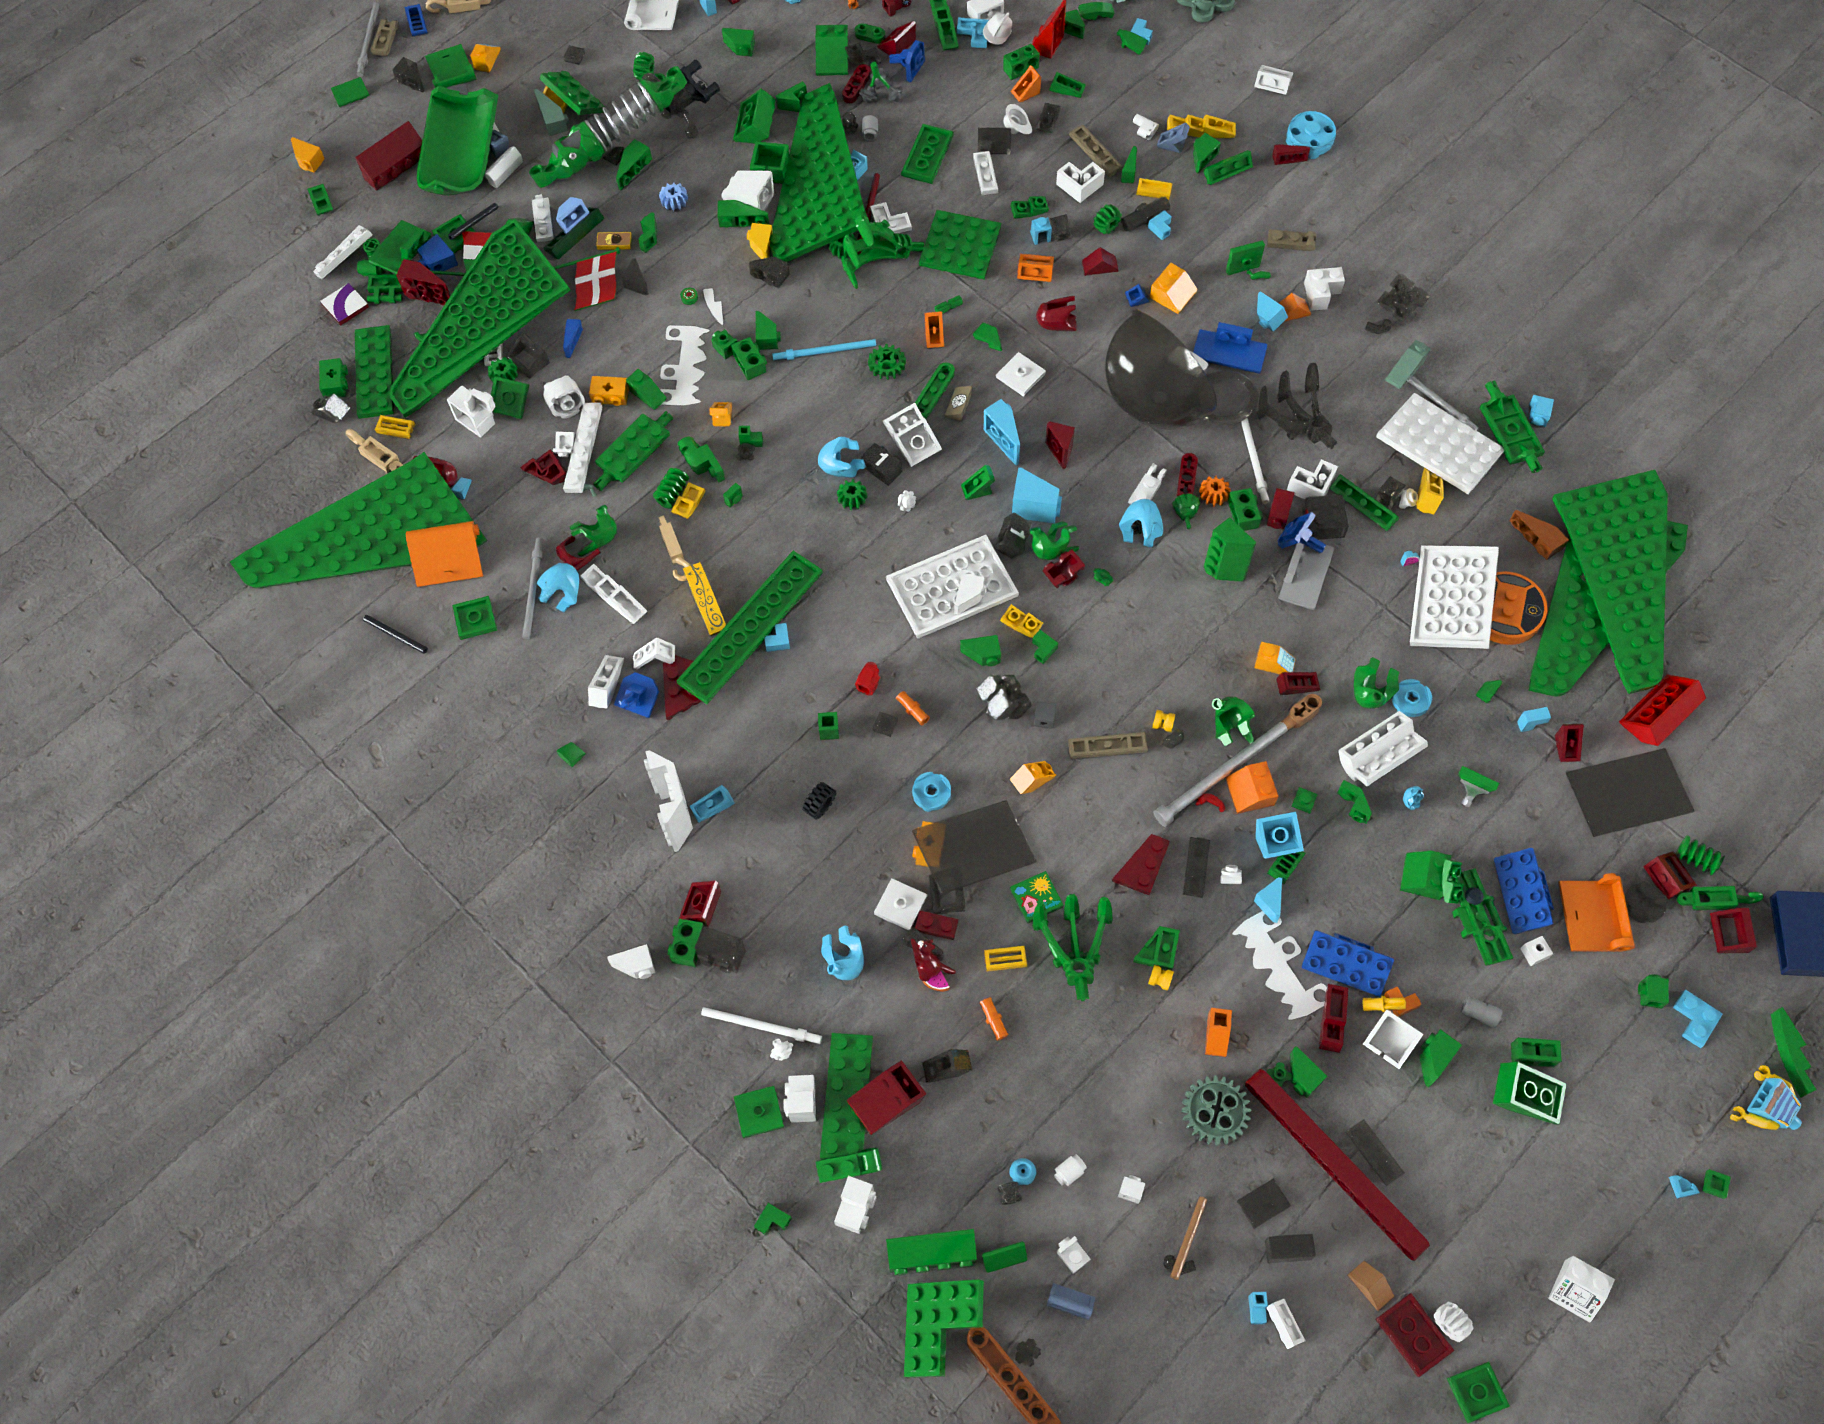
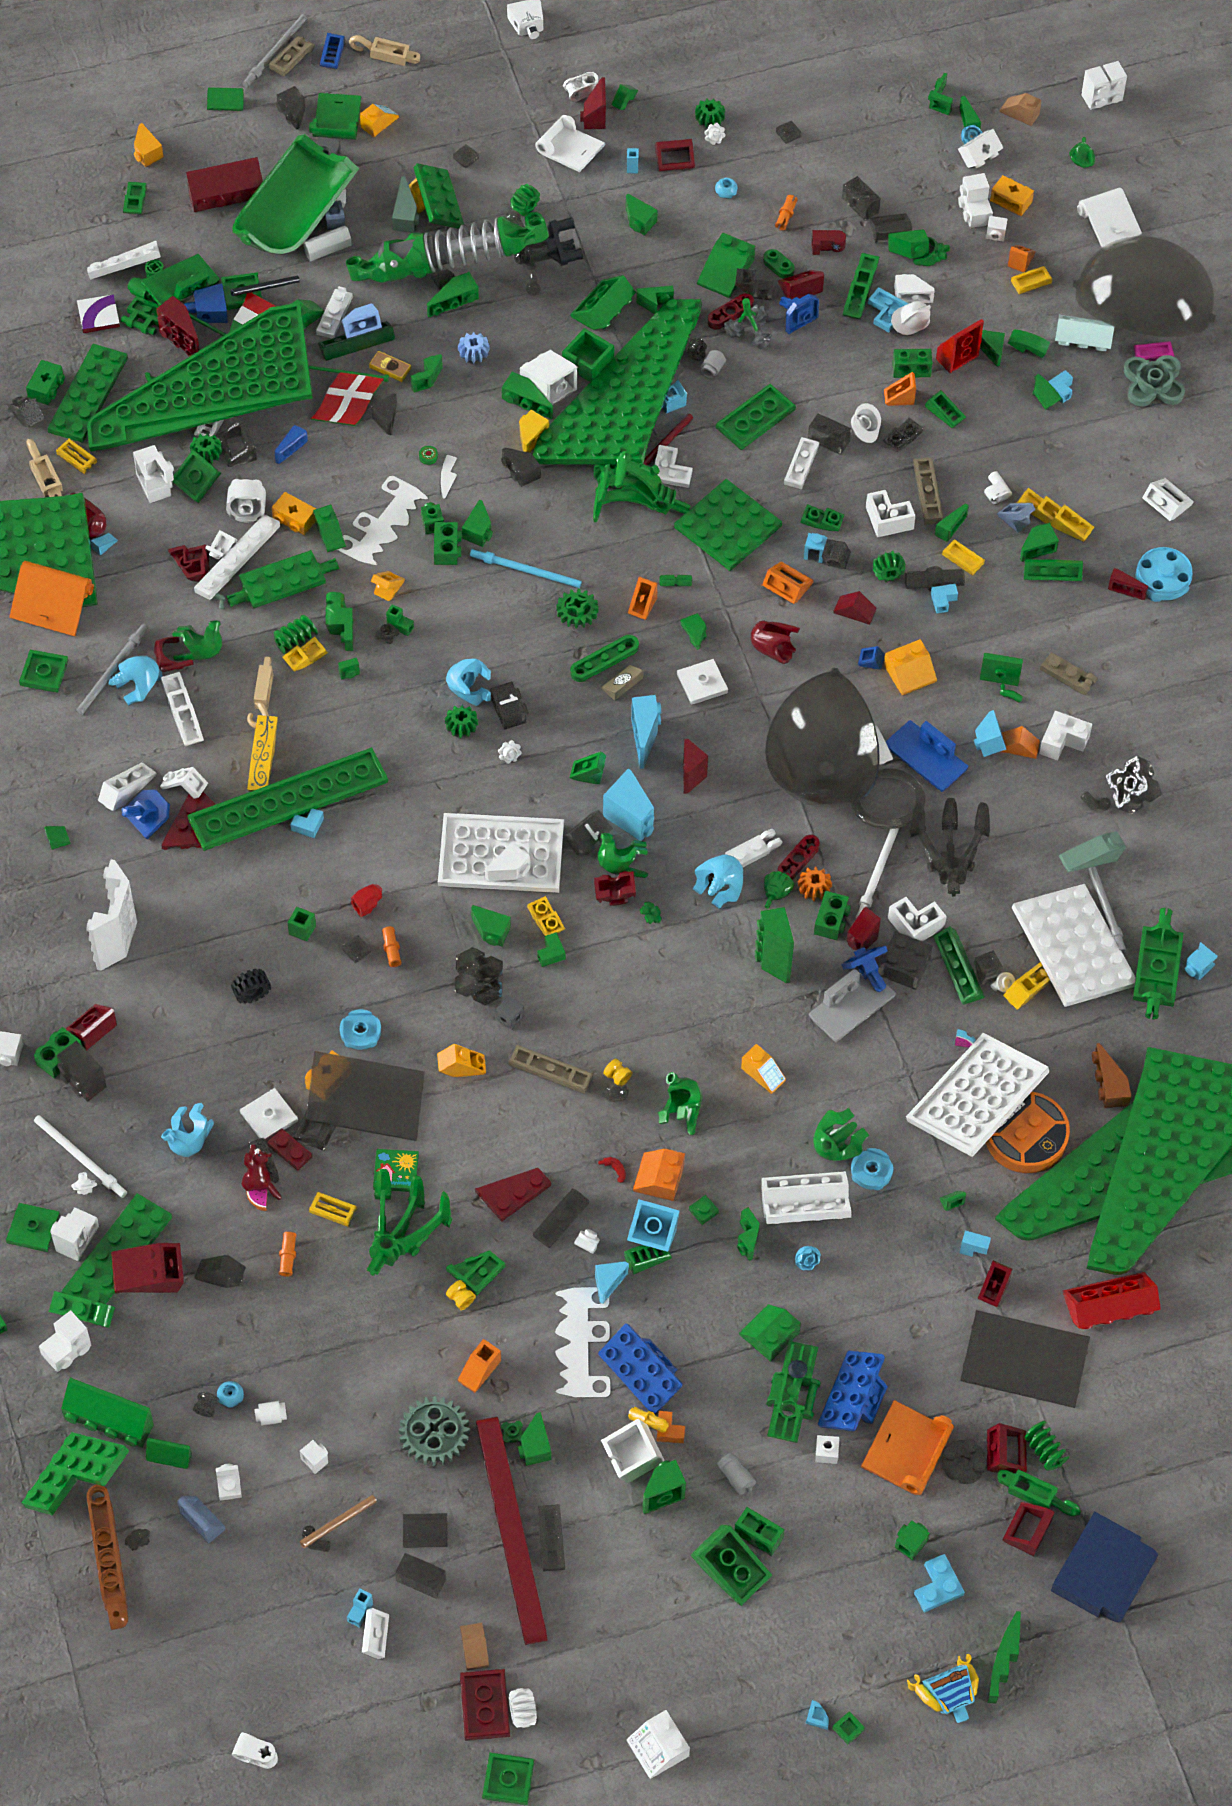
camera: 25 degrees right, 5 degrees down
(712, 803) = (156, 943): medium azure slope -> none
(912, 434) = (555, 690): white slope -> none
(1165, 814) = (751, 1123): flat silver piece -> none
(1286, 685) = (775, 1095): dark red slope -> none
(1334, 1018) = (595, 1410): dark red slope -> none
(1451, 888) = (780, 1346): green slope -> none
(1475, 784) = (874, 1276): green piece -> none

